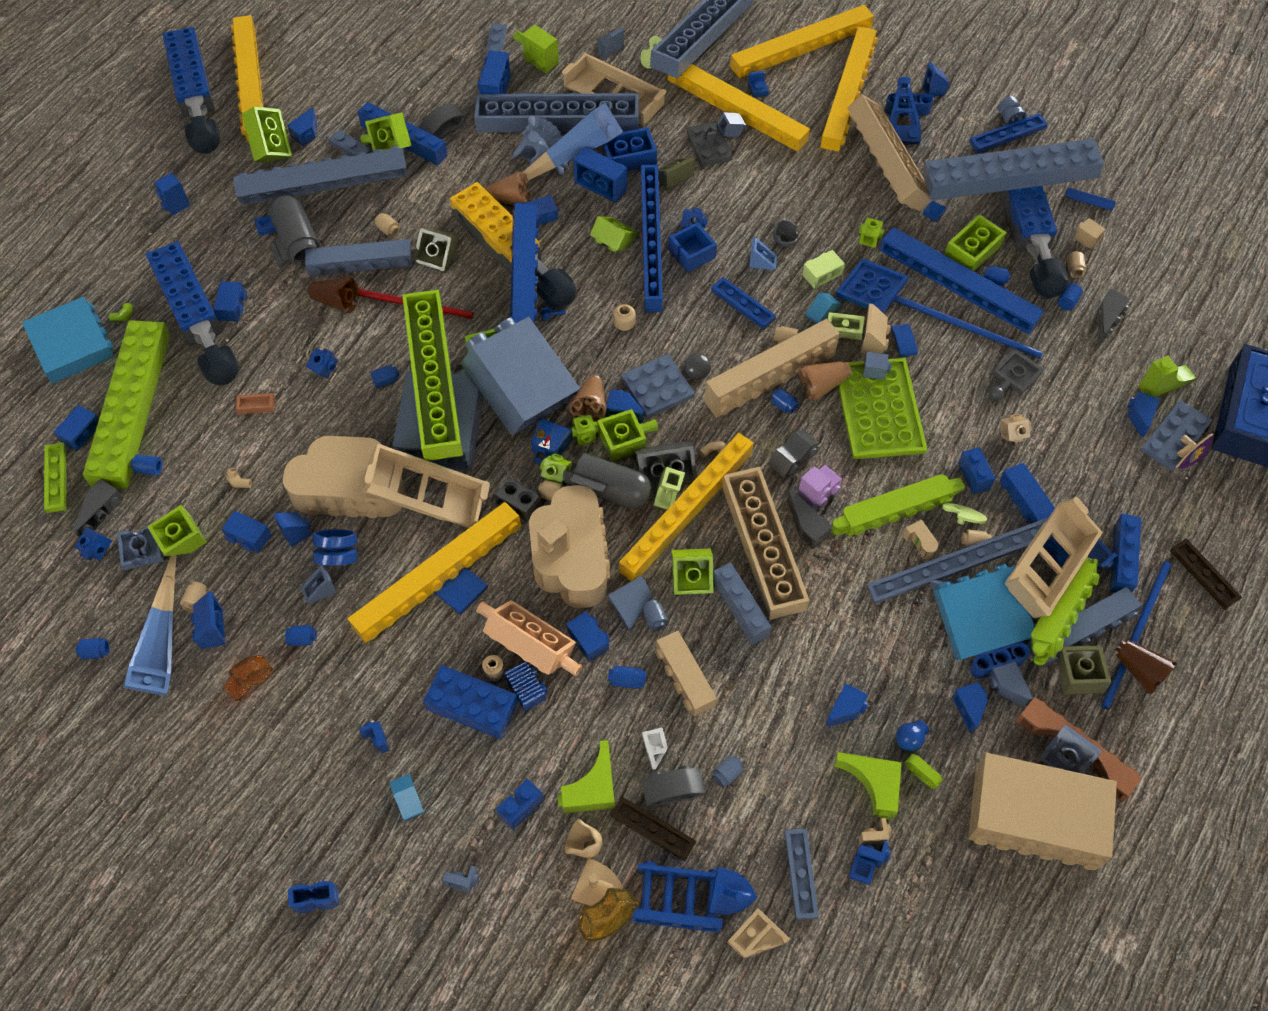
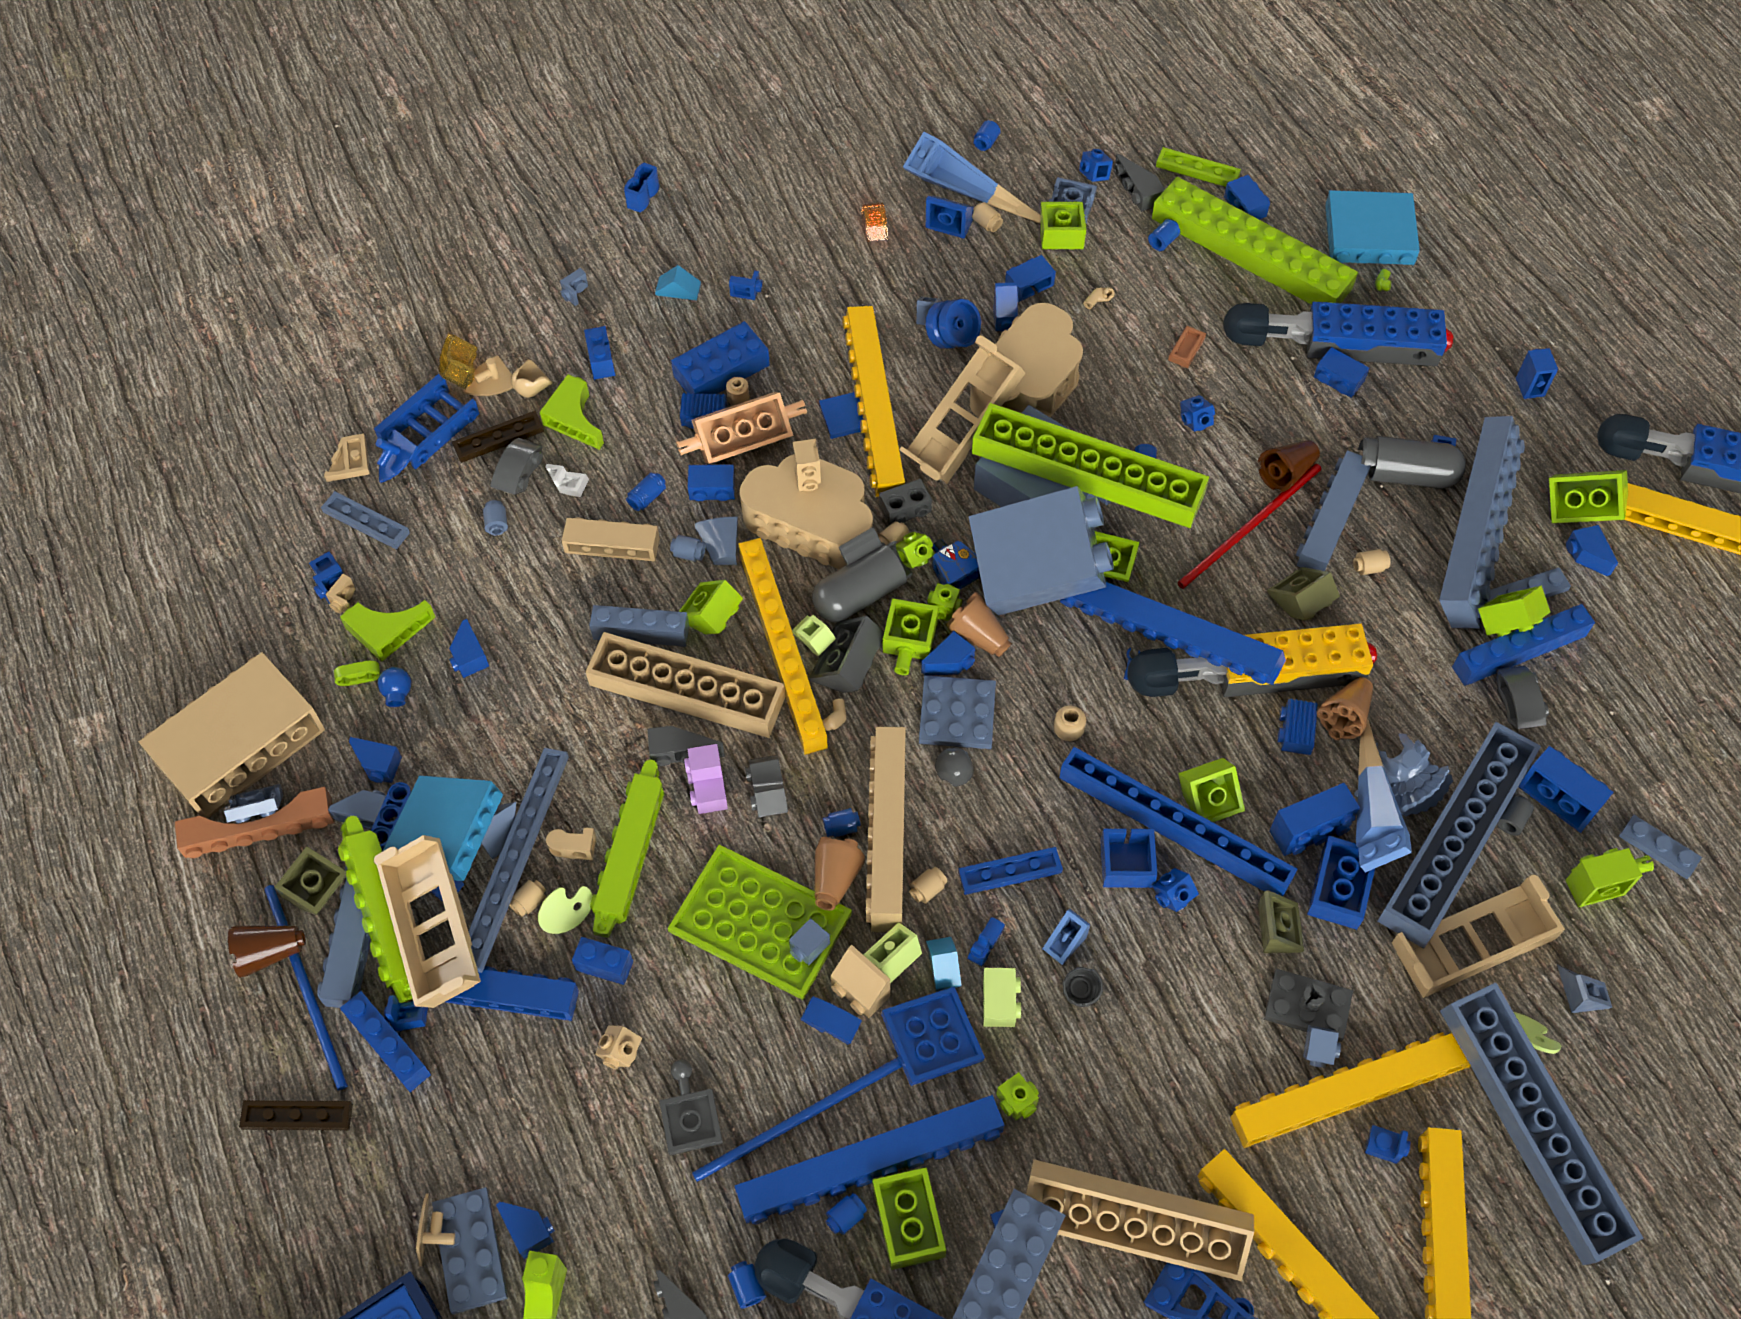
camera: 125 degrees right, 0 degrees up
(300, 635) = (887, 274): blue brick -> none
(804, 292) = (986, 941): none -> blue bar

